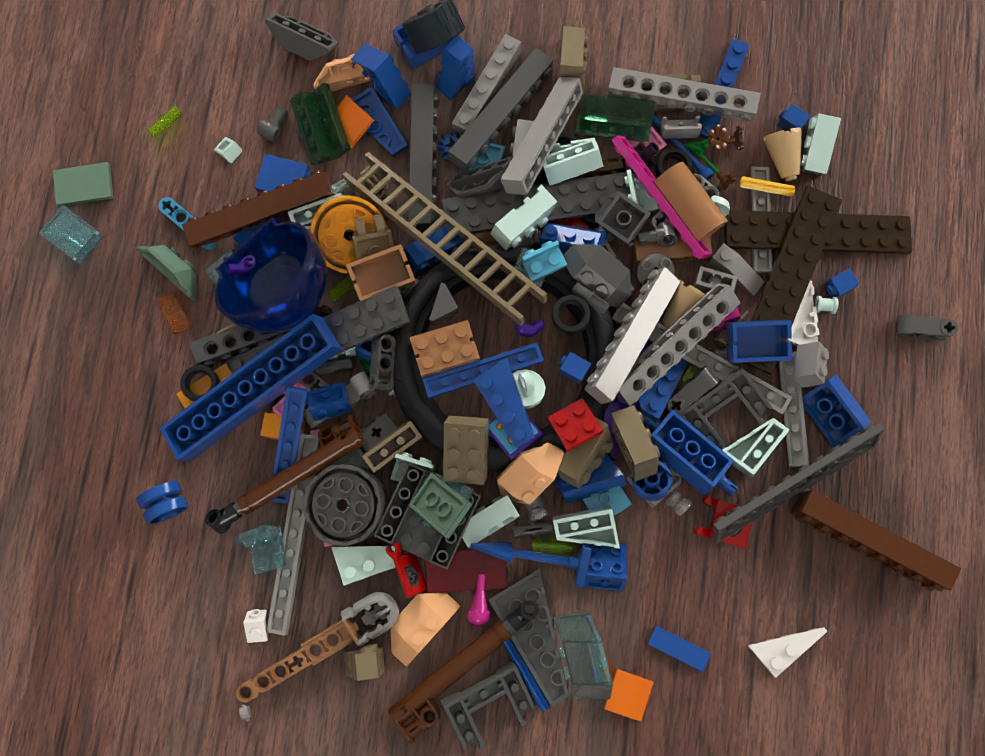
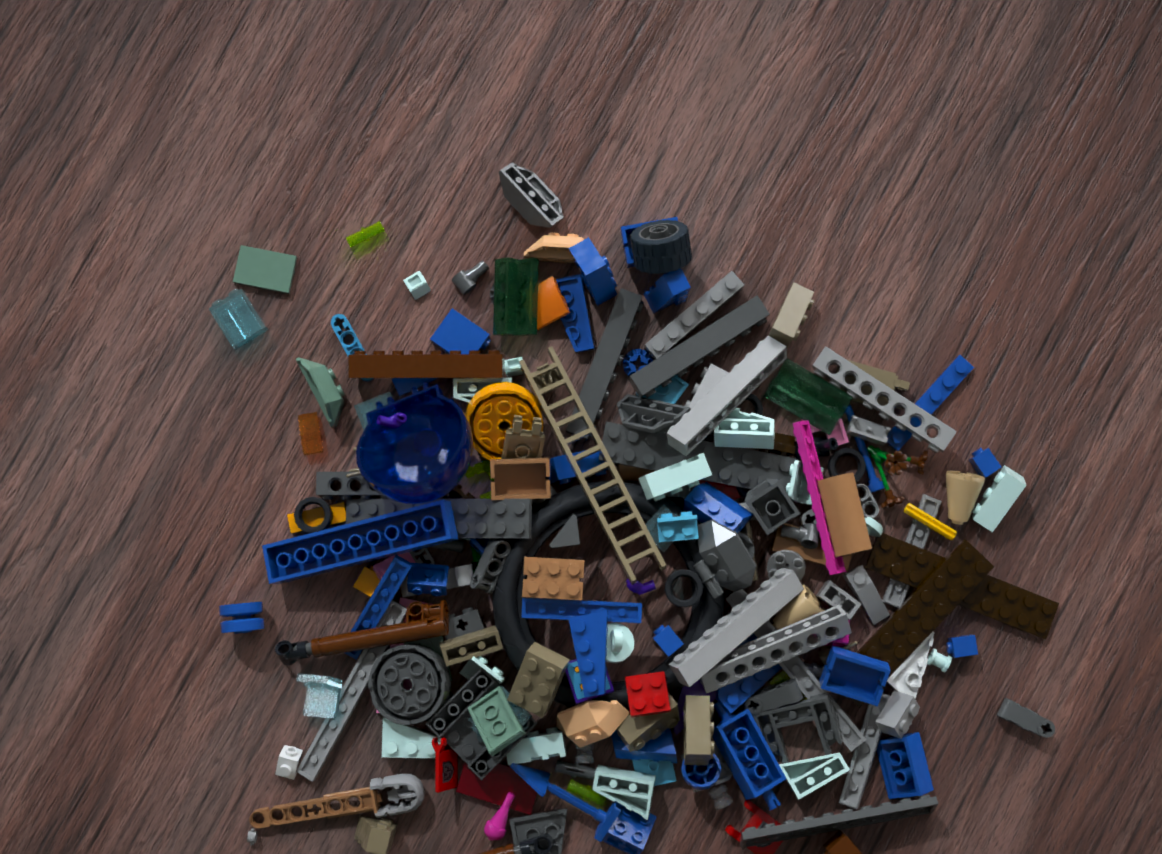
camera: 20 degrees right, 5 degrees up
(420, 623) = (439, 817): light nougat wedge -> none

